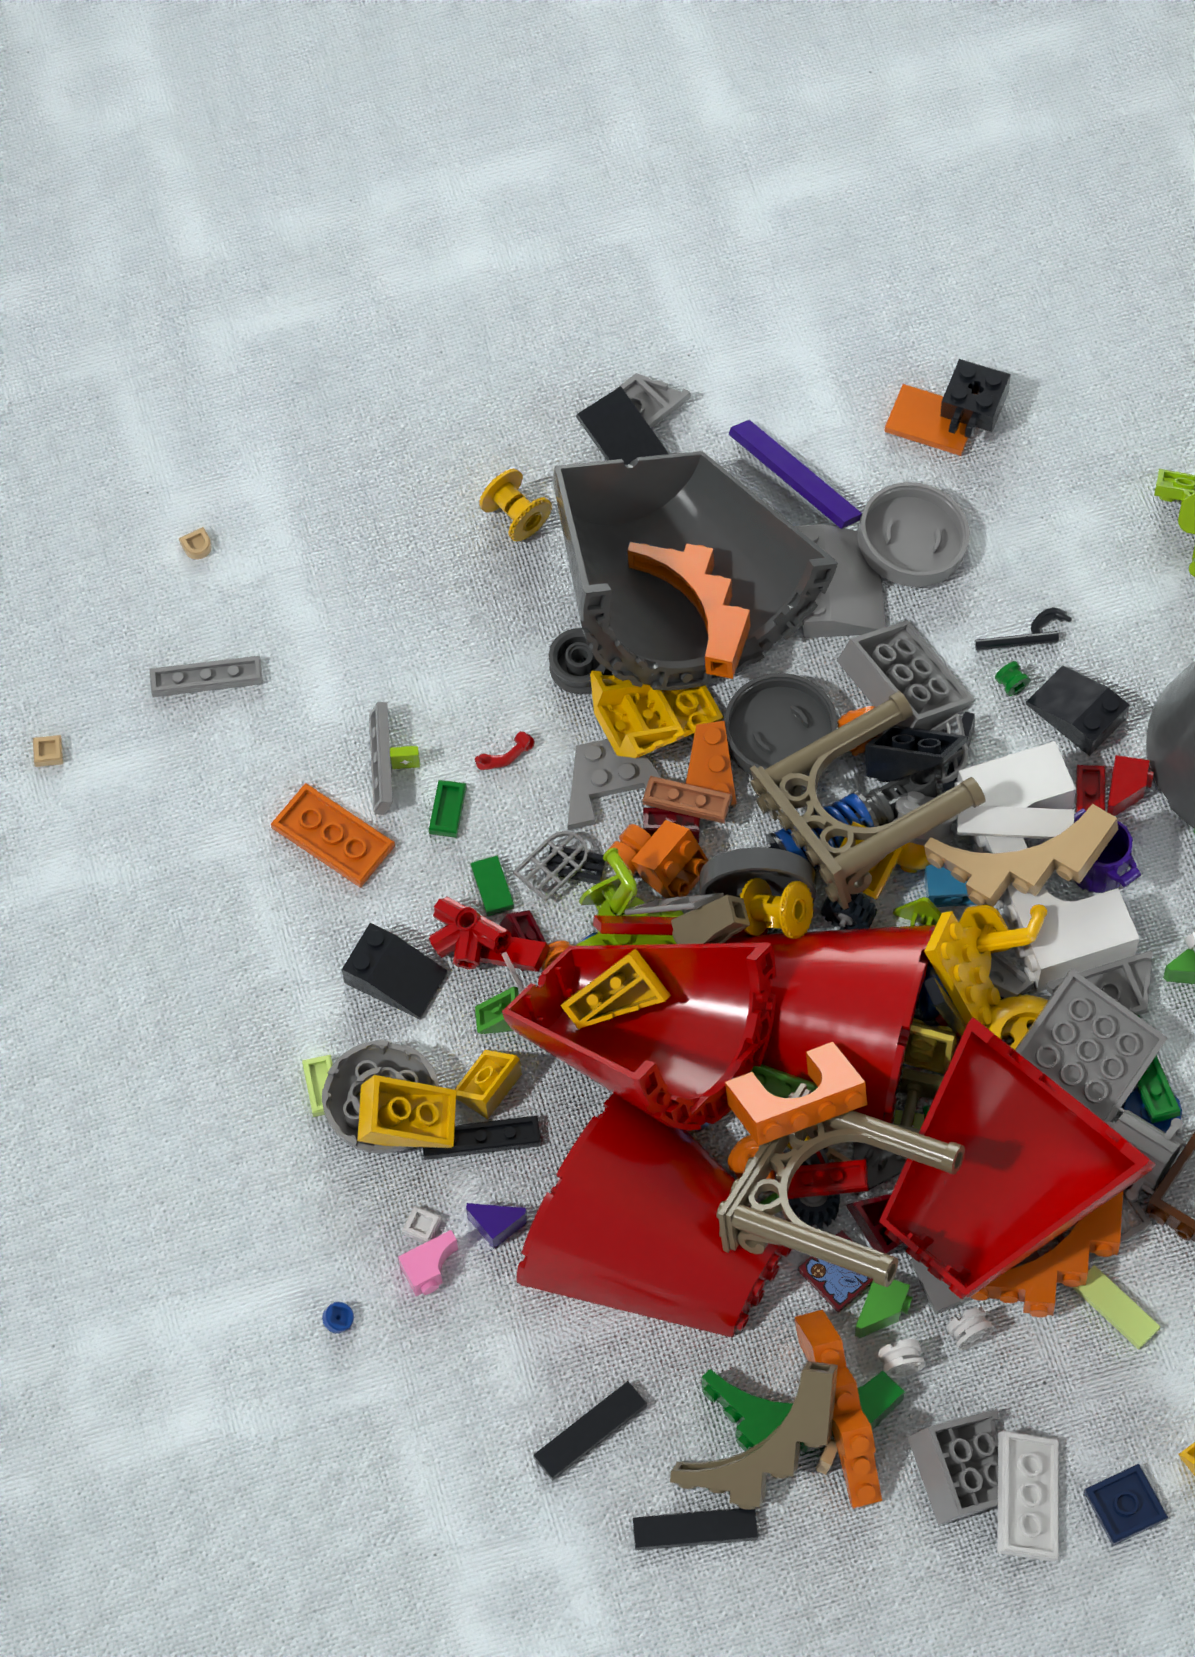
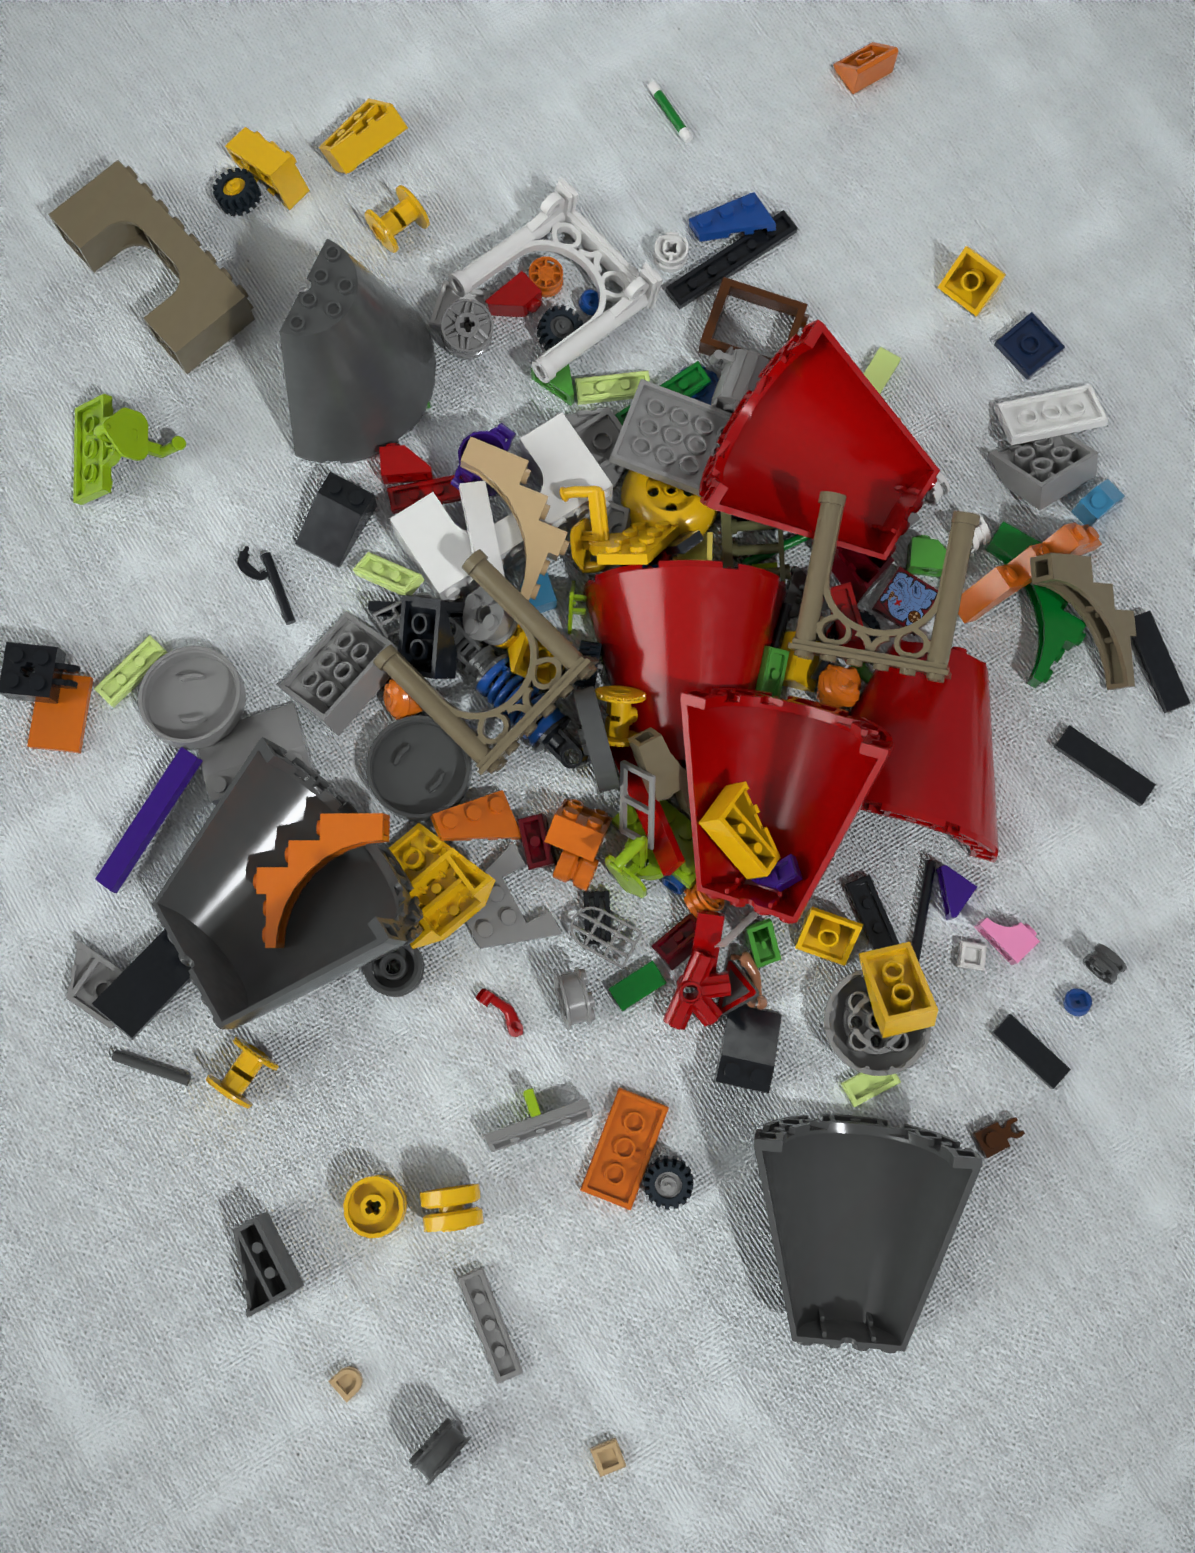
camera: 110 degrees left, 15 degrees up
(107, 599) = (439, 1450): none -> dark grey wheel
(196, 1001) = (860, 1223): none -> dark grey cone
(224, 1193) = (994, 1138): none -> reddish brown plate
(285, 862) = (668, 1182): none -> black wheel
(302, 1255) = (1030, 1051): none -> black tile
(326, 657) = (452, 1209): none -> yellow wheel
(329, 491) = (264, 1263): none -> dark grey wedge
(350, 596) = (359, 1209): none -> yellow wheel
(369, 1353) = (1104, 964): none -> dark grey wheel
(441, 996) = (748, 963): none -> nougat piece
(447, 808) = (570, 1049): green tile -> none
(459, 975) = (741, 989): none -> piece
(482, 1187) = (923, 907): none -> black bar
(496, 812) = (573, 999): none -> light grey wheel
(546, 436) = (151, 1068): none -> dark grey piece
(560, 1023) = (783, 874): none -> dark purple tile
(687, 799) = (514, 830): nougat tile -> none
(774, 1117) = (841, 655): orange arch -> none
(906, 1520) = (1097, 503): none -> dark azure slope
(958, 486) = (130, 671): none -> yellowish green tile
(1000, 739) = (388, 574): none -> yellowish green tile
(1012, 678) = (320, 581): green wheel -> none
(1175, 1023) = (608, 387): none -> yellowish green tile

